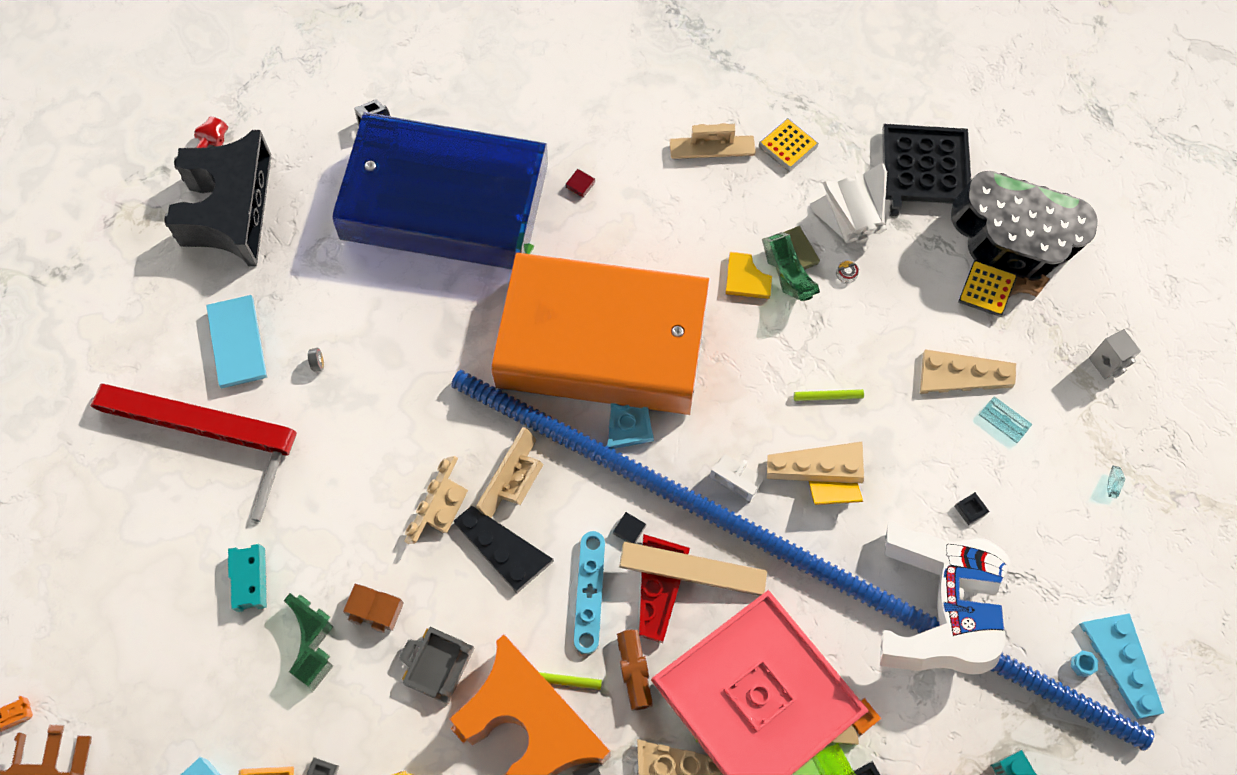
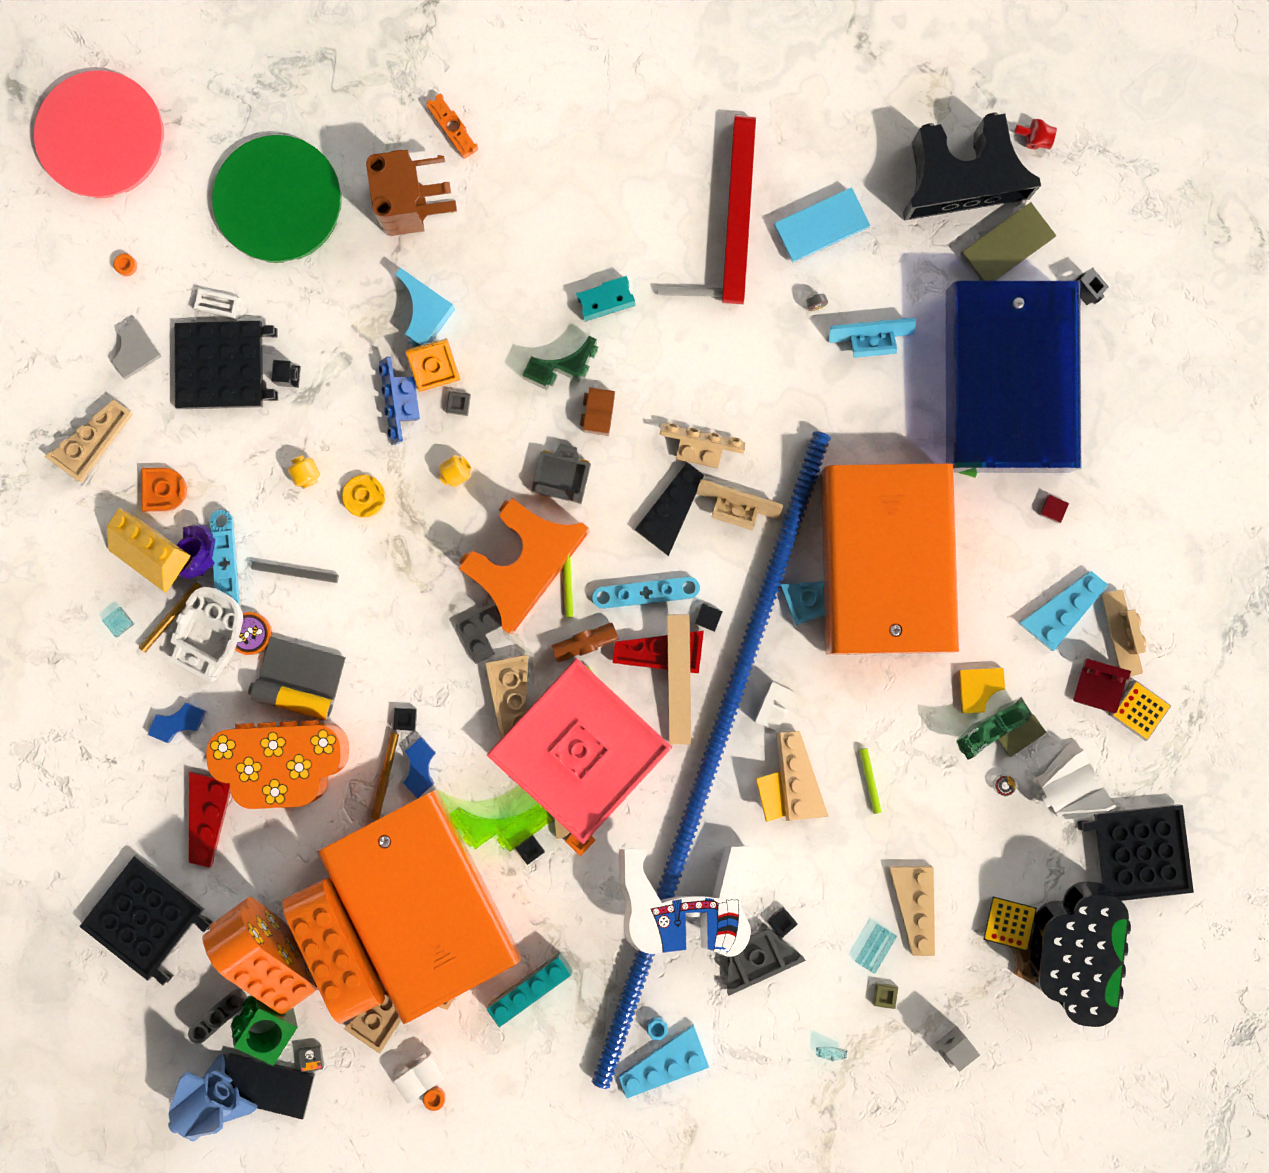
camera: 80 degrees right, 20 degrees up
(309, 176) = (1008, 244): none -> olive tile
(367, 313) = (872, 337): none -> medium azure bracket
(687, 198) = (1059, 615): none -> medium azure wing
(759, 170) = (1101, 685): none -> dark red bracket
(1010, 530) = (762, 958): none -> dark grey wing
(1055, 418) = (885, 995): none -> olive tile

